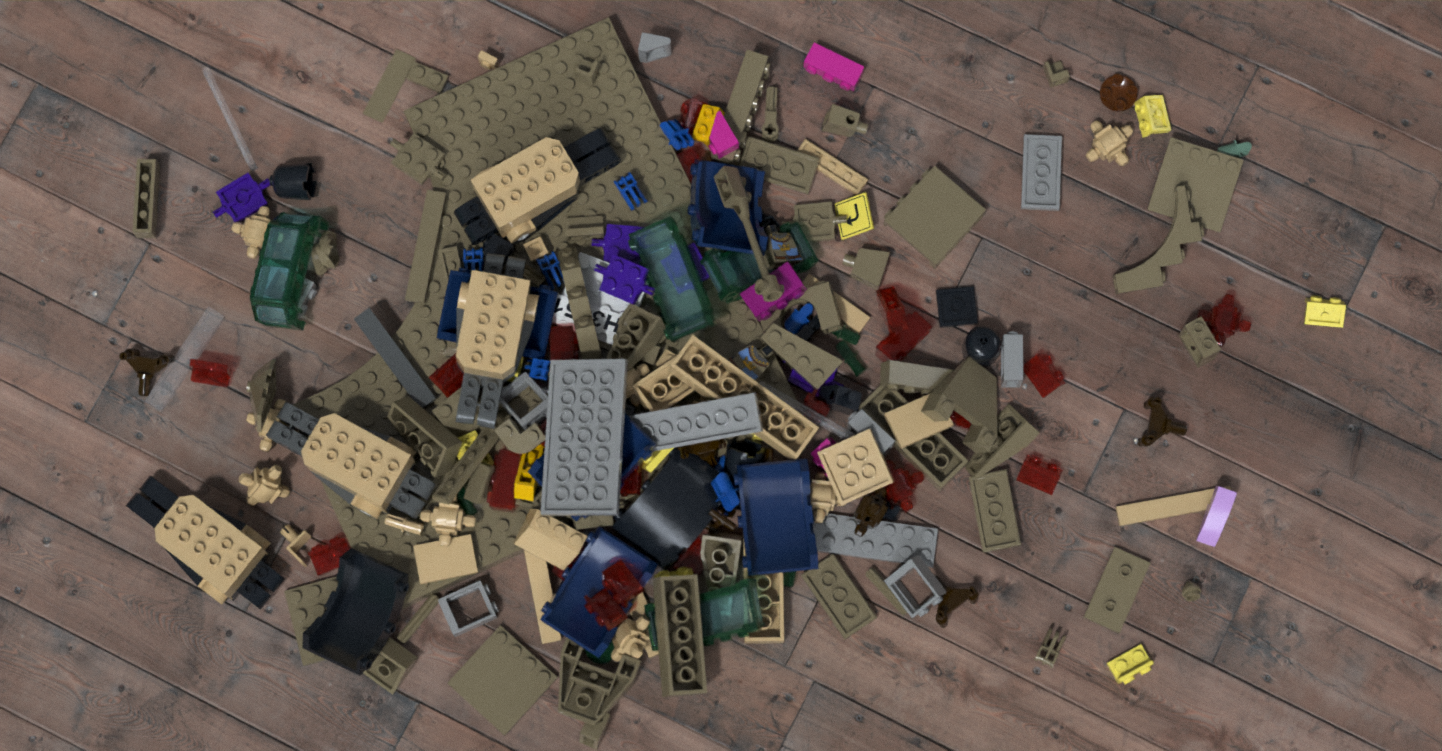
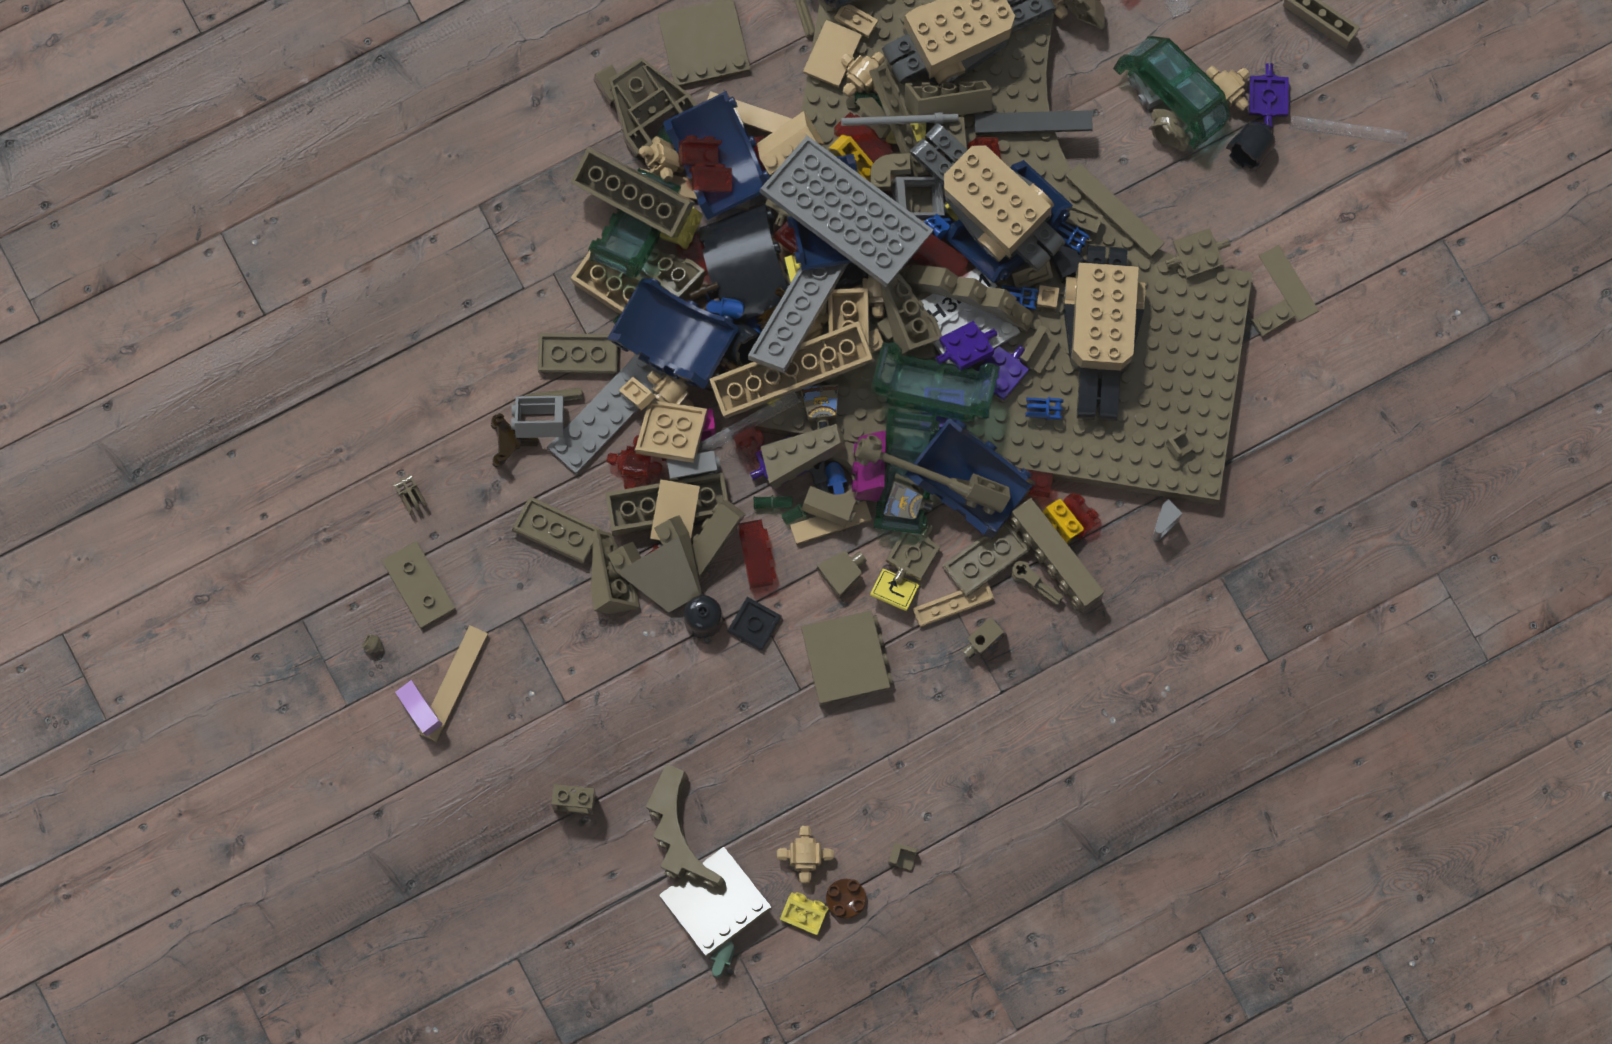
camera: 120 degrees right, 0 degrees up
(403, 556) = (856, 20): none -> tan plate
(404, 524) = (884, 39): tan axle -> none
(444, 603) = (784, 33): light grey window -> none
(449, 427) = (936, 118): none -> light grey bar
(488, 61) = (1252, 376): tan plate -> none
(677, 134) = (1071, 486): blue arm -> none
(722, 138) = (1037, 513): dark pink slope -> none
(768, 220) = (942, 515): black piece -> none
(833, 67) = (1041, 665): dark pink brick -> none
(842, 519) = (637, 393): none -> tan plate
(844, 399) = (739, 465): black torso -> none
(870, 511) = (626, 419): dark brown piece -> none
(891, 309) = (786, 557): clear red brick -> none
(892, 515) = (618, 441): black piece -> none
(1011, 360) = (672, 631): light grey window -> none
(1039, 474) = (560, 589): clear red bracket -> none
(1041, 172) = (821, 778): light grey plate -> none
(1043, 374) = (642, 653): clear red bracket -> none
(1130, 664) = (349, 550): light yellow bracket -> none
(1159, 423) = (529, 718): dark brown axle -> none
(1224, 320) = (579, 838): clear red piece -> none
(1324, 312) = (526, 933): light yellow bracket -> none

